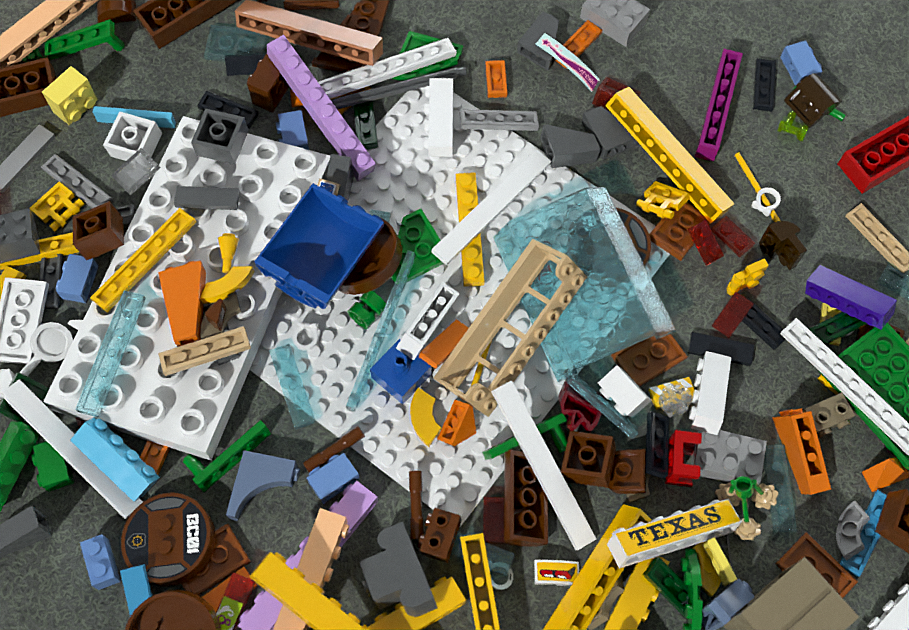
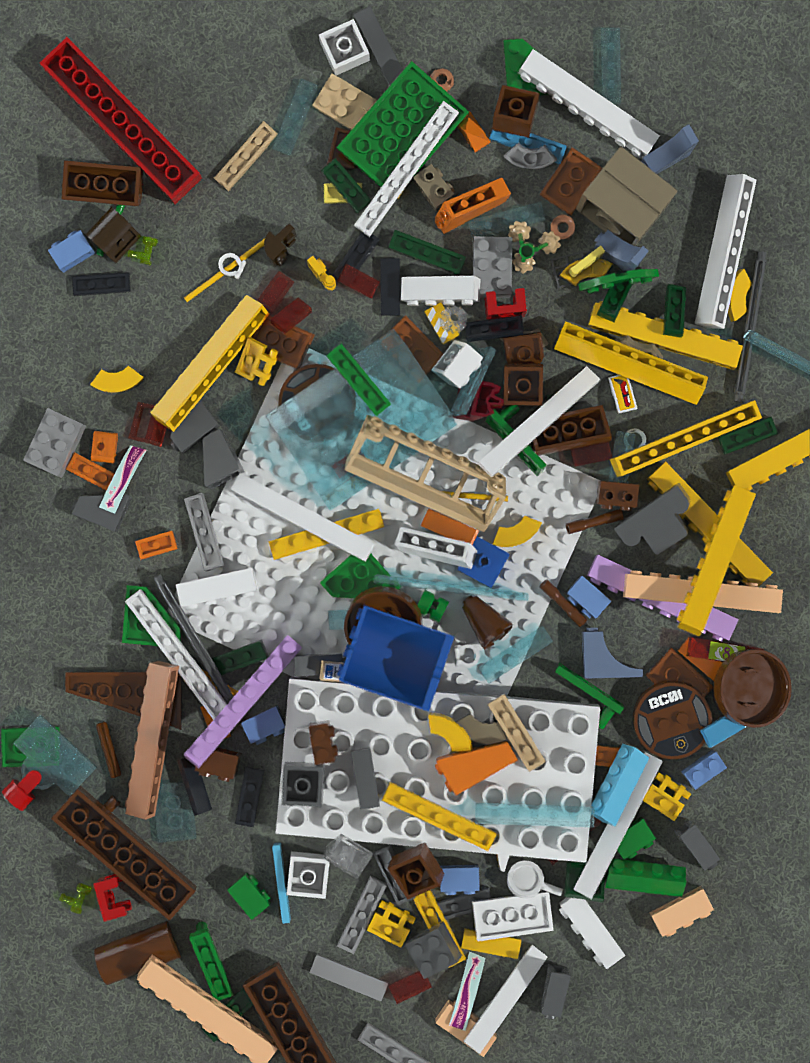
camera: 100 degrees left, 20 degrees up
(70, 95) = (277, 949): light yellow brick -> none
(80, 509) = (664, 802): none -> yellow plate
(132, 87) = (249, 895): none -> green brick
(216, 314) = (484, 730): reddish brown slope -> none
(228, 245) = (413, 742): yellow cone -> none
(256, 162) = (322, 743): none -> reddish brown brick
(335, 358) = (485, 621): none -> reddish brown cone
(458, 424) = (520, 502): orange slope -> none
(602, 55) = (104, 447): none -> orange piece
(626, 272) = (358, 380): none -> green piece
(664, 79) = (117, 381): none -> yellow tile
(673, 532) = (574, 302): brick -> none
(718, 105) = (139, 324): magenta brick -> none
(754, 394) = (427, 252): none -> dark green plate
(771, 546) = (563, 219): none -> nougat piece
(850, 297) = (320, 179): dark purple brick -> none
(866, 100) = (102, 183): none -> reddish brown brick

